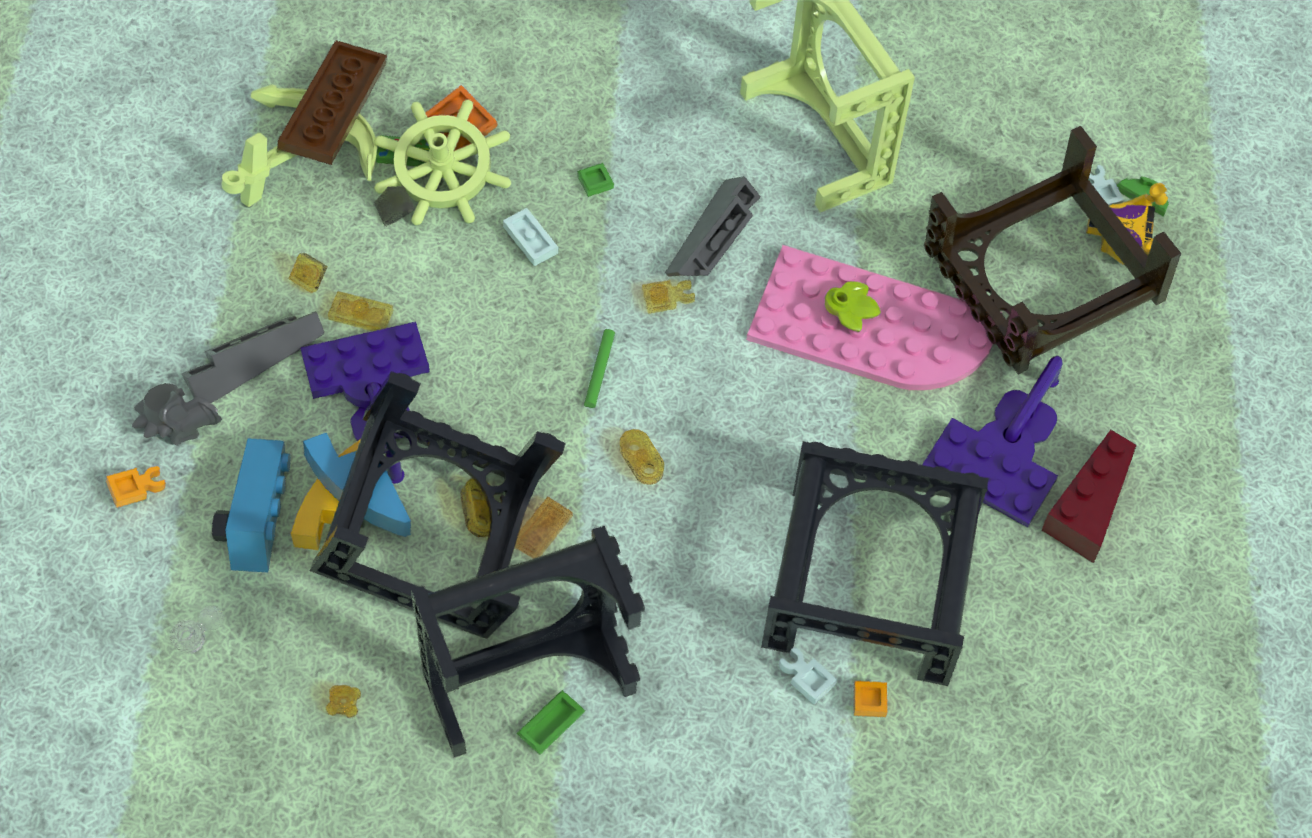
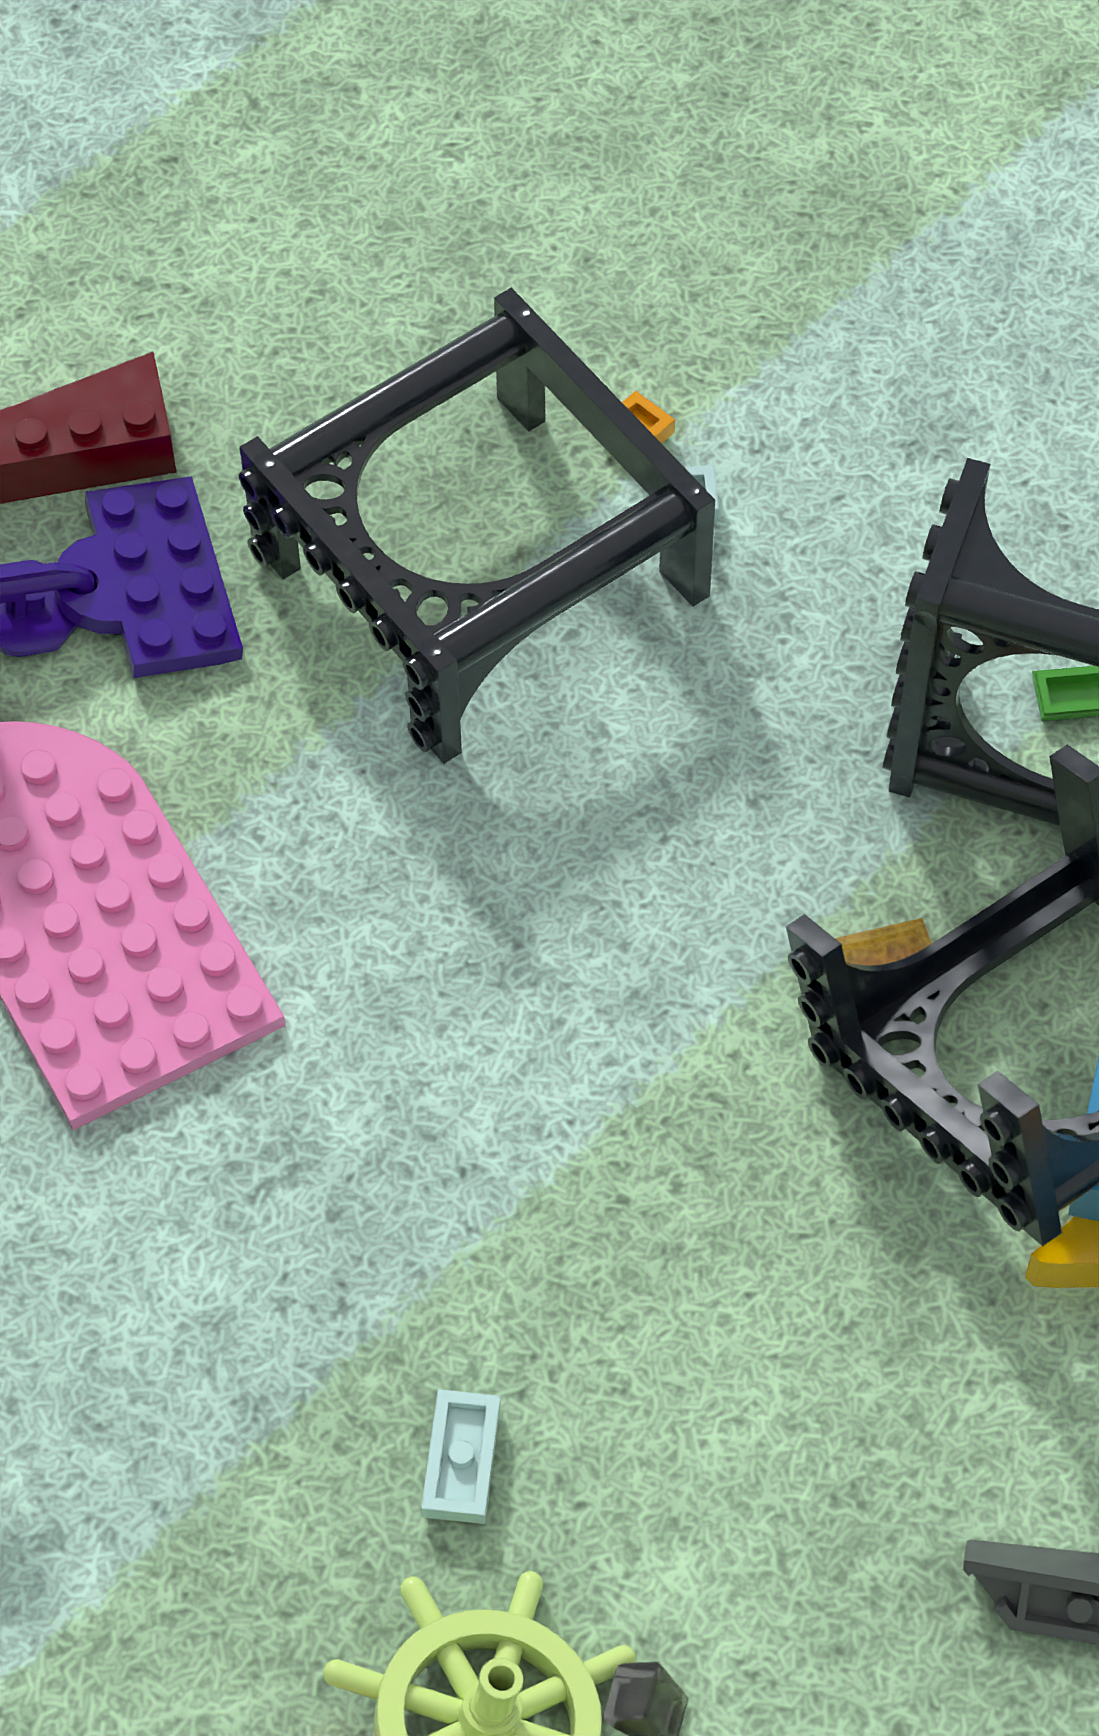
camera: 135 degrees left, 0 degrees up
(307, 272) = (909, 1681): clear yellow plate -> none
(360, 312) = (870, 1542): clear yellow plate -> none
(360, 367) = (947, 1409): dark purple plate -> none
(475, 509) = (957, 1050): clear yellow plate -> none
(595, 179) = (242, 1494): bright green tile -> none
(599, 368) = (559, 1143): bright green bar -> none
(643, 458) = (630, 950): clear yellow plate -> none
(663, 297) = (342, 1190): clear yellow plate -> none
(715, 229) = (147, 1235): dark grey wedge -> none
(851, 304) = (89, 920): lime plate -> none

